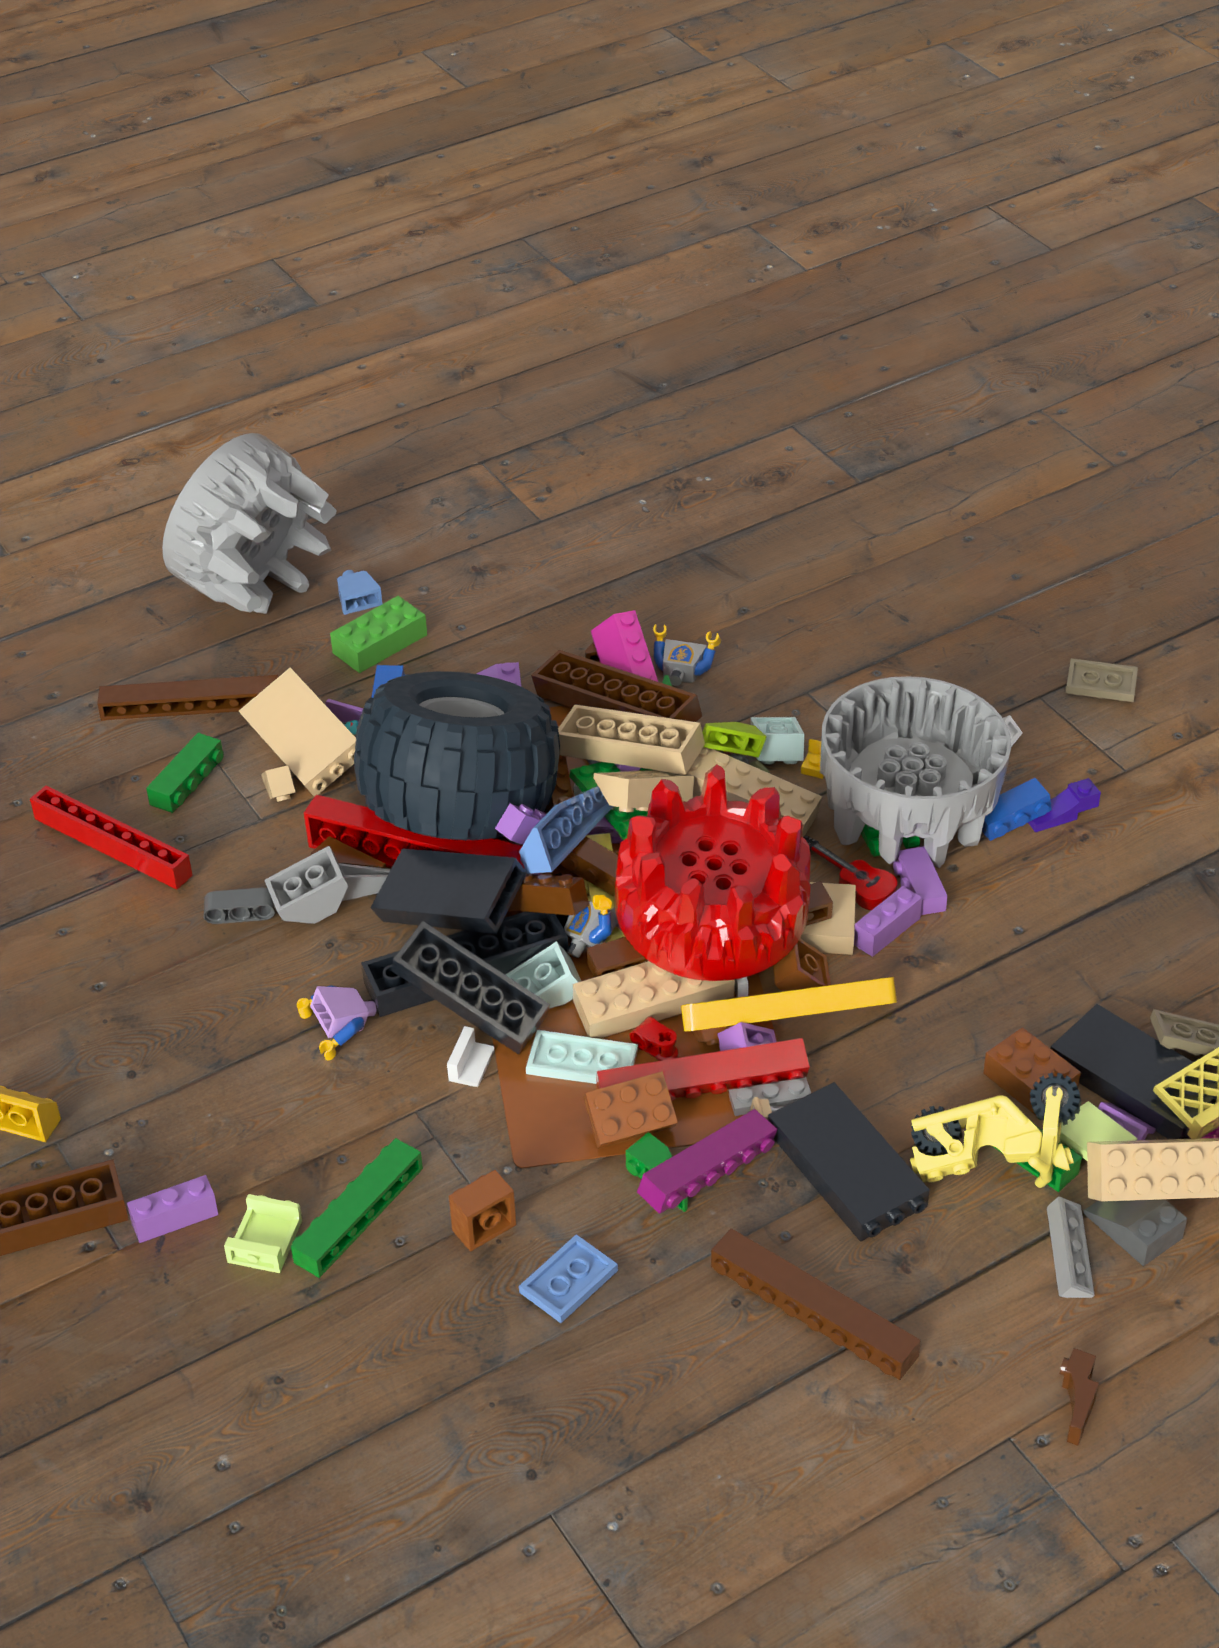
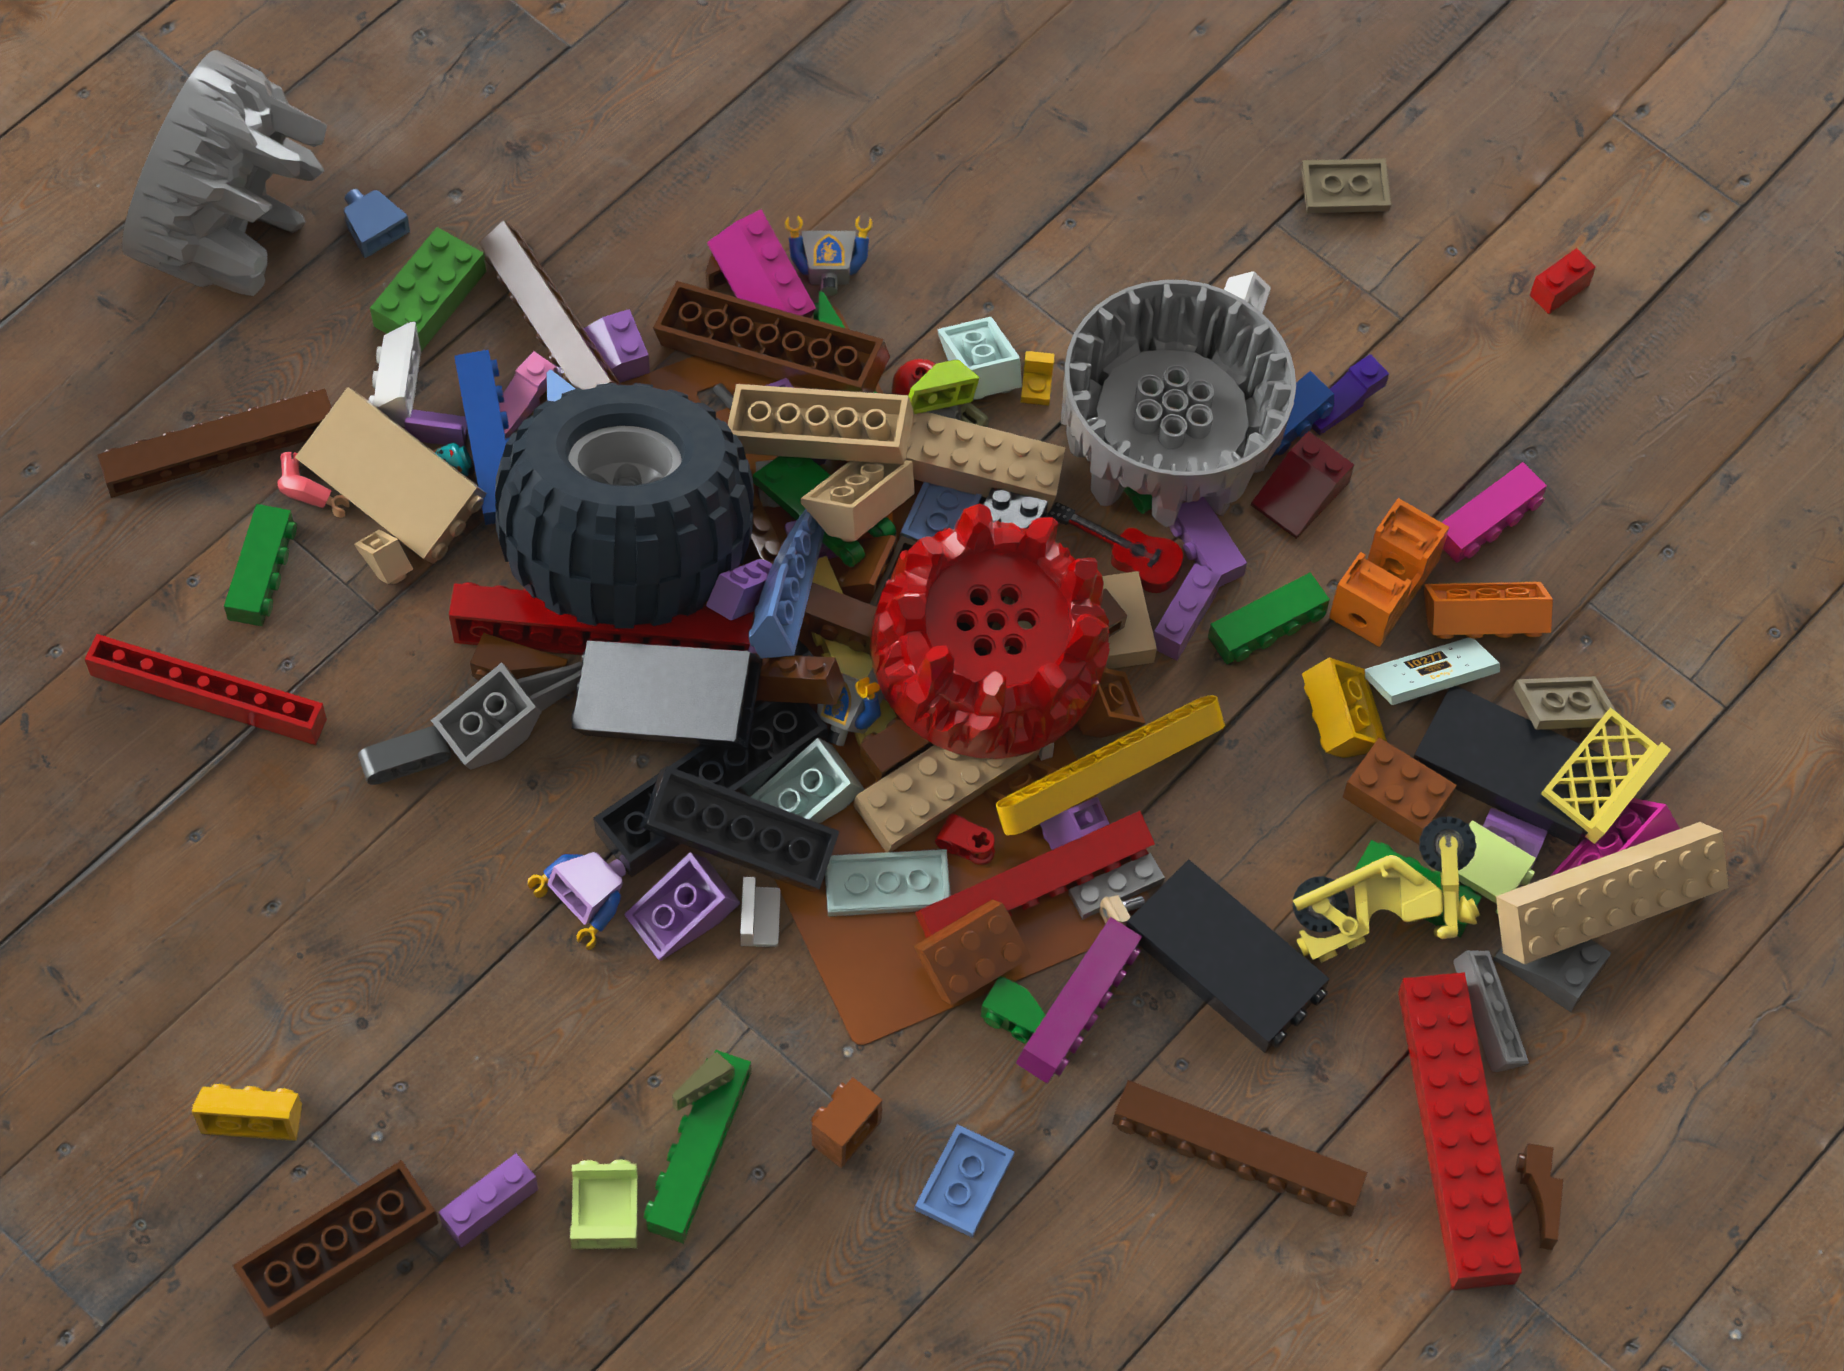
camera: 20 degrees left, 20 degrees up
(236, 732) = (306, 490): none -> coral arm
(338, 673) = (397, 373): none -> white slope
(374, 1153) = (705, 1079): none -> olive slope
(411, 1040) = (682, 906): none -> medium lavender slope
(451, 638) = (545, 309): none -> brick
(955, 938) = (1268, 619): none -> green brick
(999, 1005) = (1343, 708): none -> yellow slope
(1012, 856) = (1303, 485): none -> dark red slope
(1014, 1334) = (1459, 1132): none -> red brick
(1053, 932) = (1399, 562): none -> orange piece
(1083, 994) = (1432, 670): none -> light aqua tile
(1144, 964) = (1488, 609): none -> orange slope
(1163, 900) = (1492, 511): none -> dark pink brick

